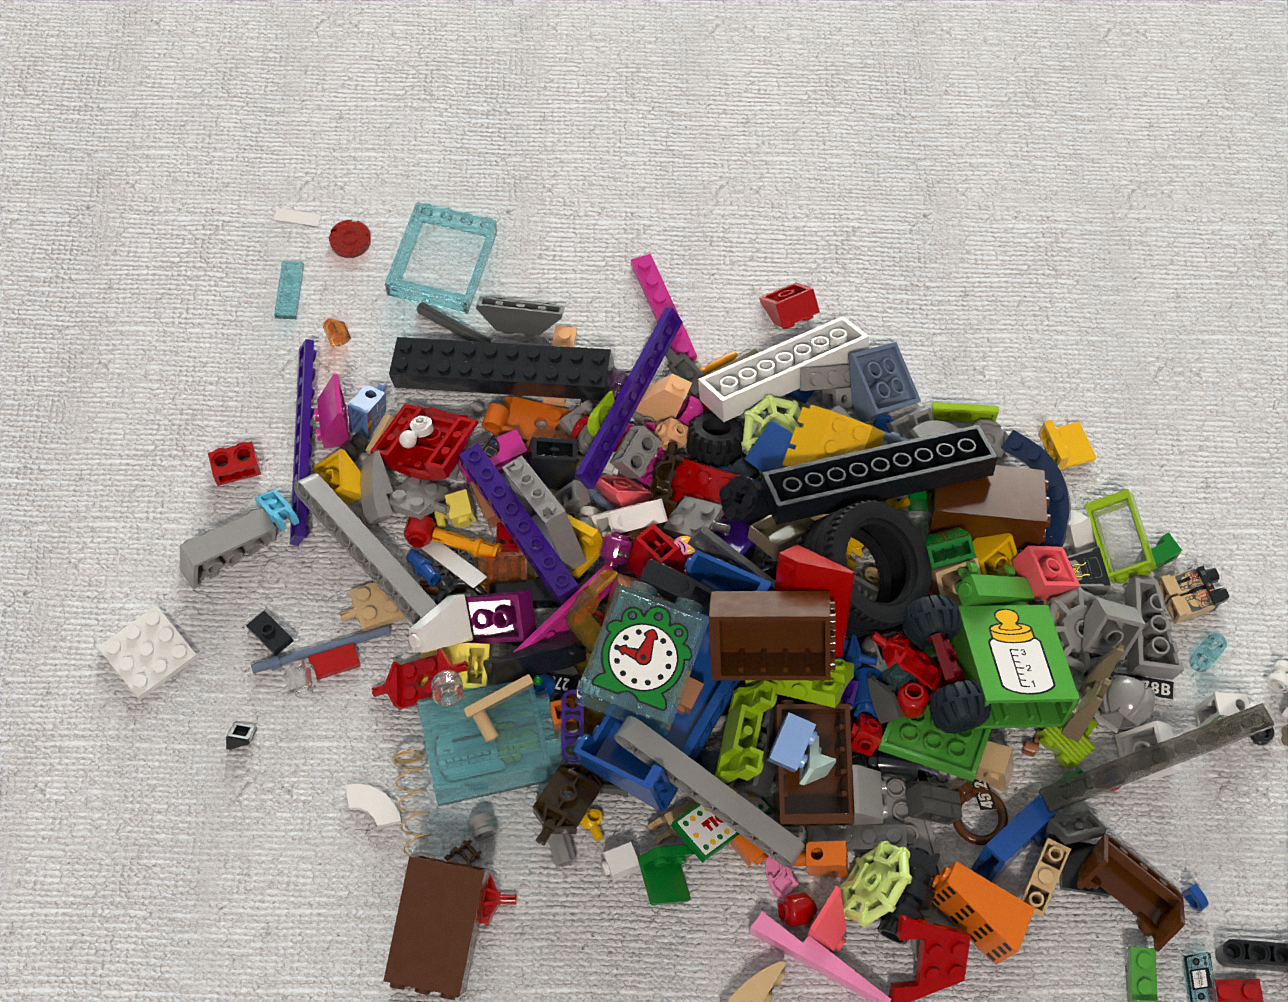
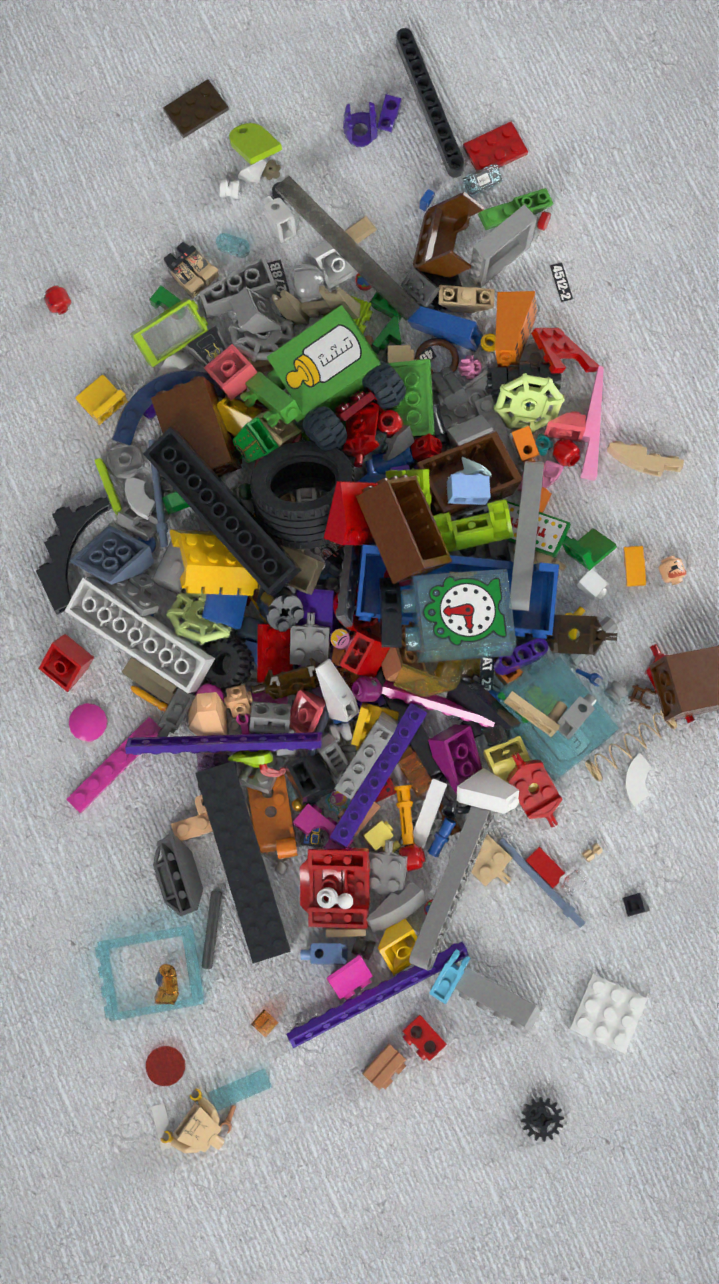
camera: 115 degrees left, 15 degrees up
(86, 536) = (542, 1128): none -> black gear
(230, 416) = (384, 1067): none -> nougat brick
(266, 267) = (229, 1118): none -> nougat hand
(269, 633) = (549, 927): black plate -> none
(275, 237) = (197, 1129): none -> tan torso
(321, 712) = (589, 854): none -> tan piece
(420, 261) = (168, 986): none -> clear orange leg
(447, 688) = (542, 754): clear head -> none
(468, 733) = (576, 715): none -> light grey torso
(512, 808) = (591, 677): none -> blue hand
(593, 964) = (672, 570): none -> light nougat head
(621, 924) = (634, 566): none -> light orange slope
(718, 302) = (88, 722): none -> dark pink dish
(813, 885) = (547, 444): none -> teal plate
(933, 361) = (60, 547): none -> black arch
(952, 845) = (470, 367): none -> bright pink gear
(1033, 776) = (390, 332): none -> green slope
(1106, 936) = (502, 246): none -> light grey window
(1178, 798) = (361, 229): none -> tan tile
(1201, 445) = (57, 300): none -> red head

